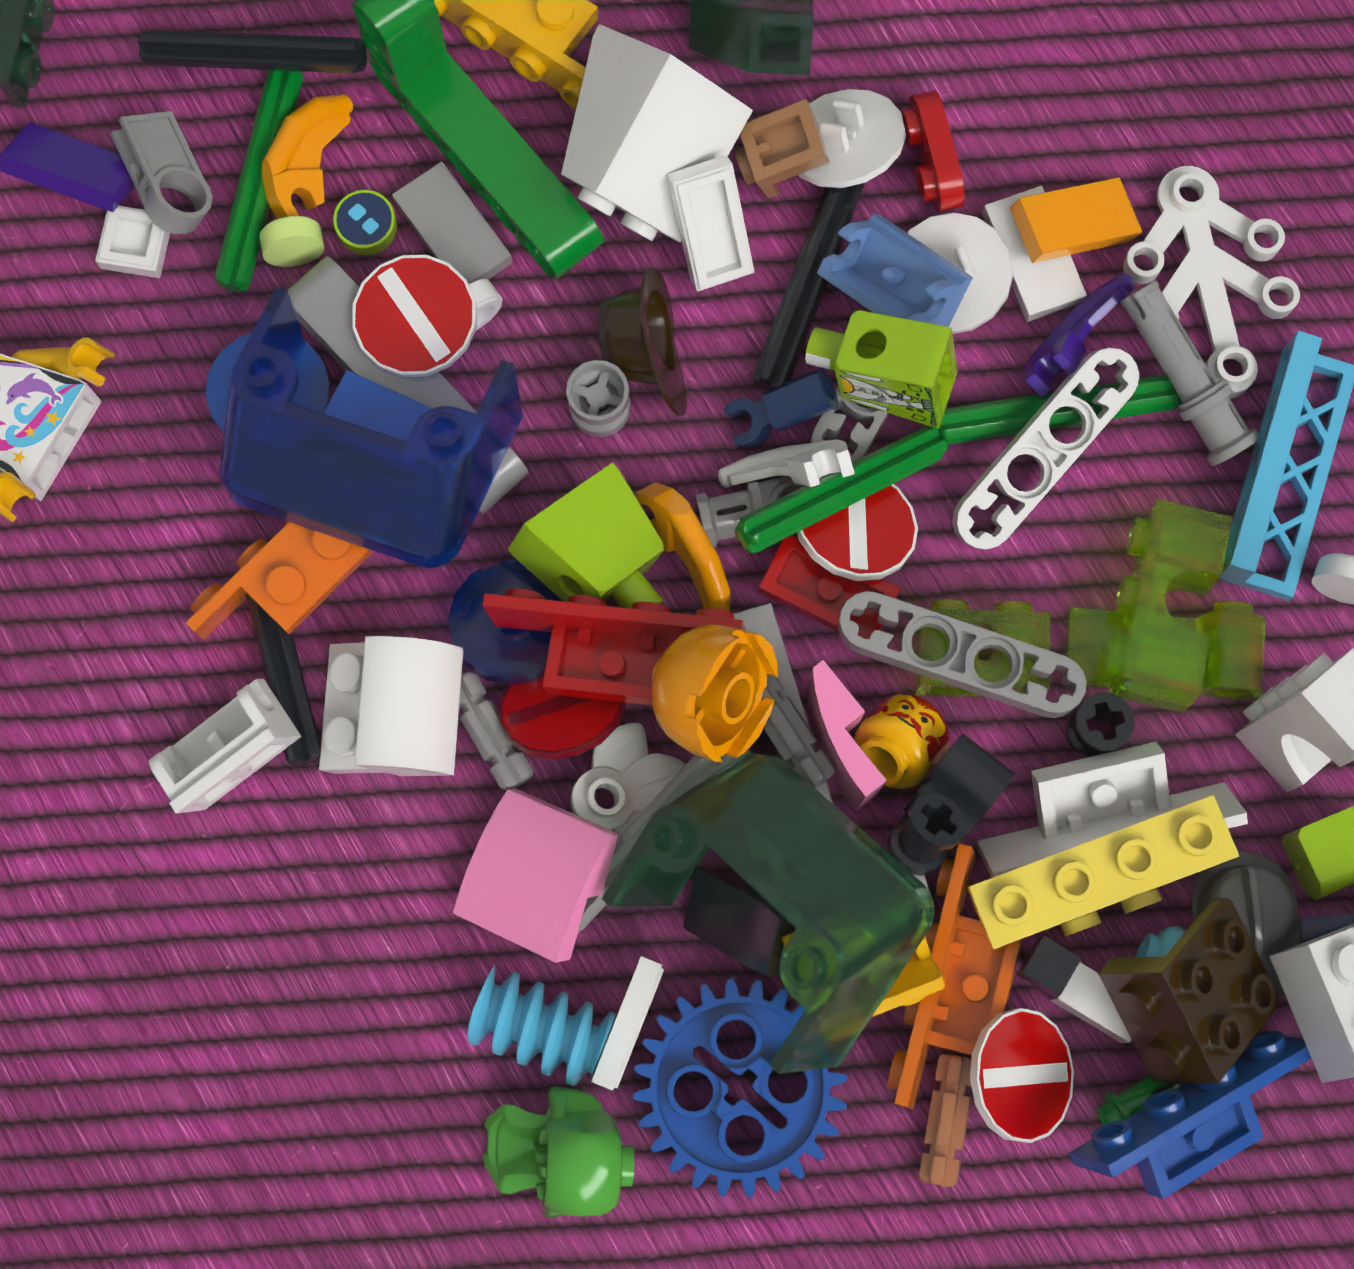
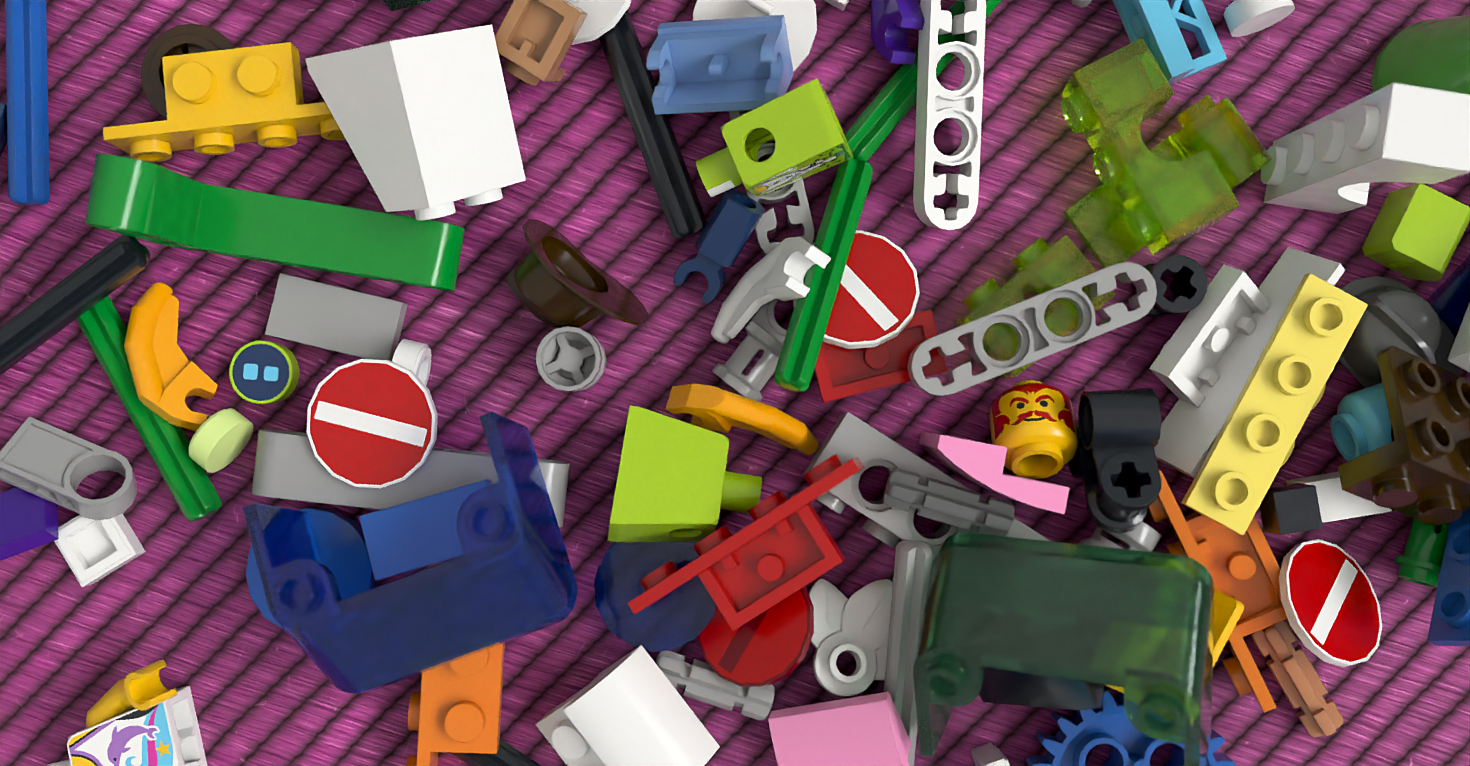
camera: 40 degrees left, 10 degrees up
(711, 222) = (536, 144): white tile -> none
(712, 690) = (876, 536): light orange cylinder -> none

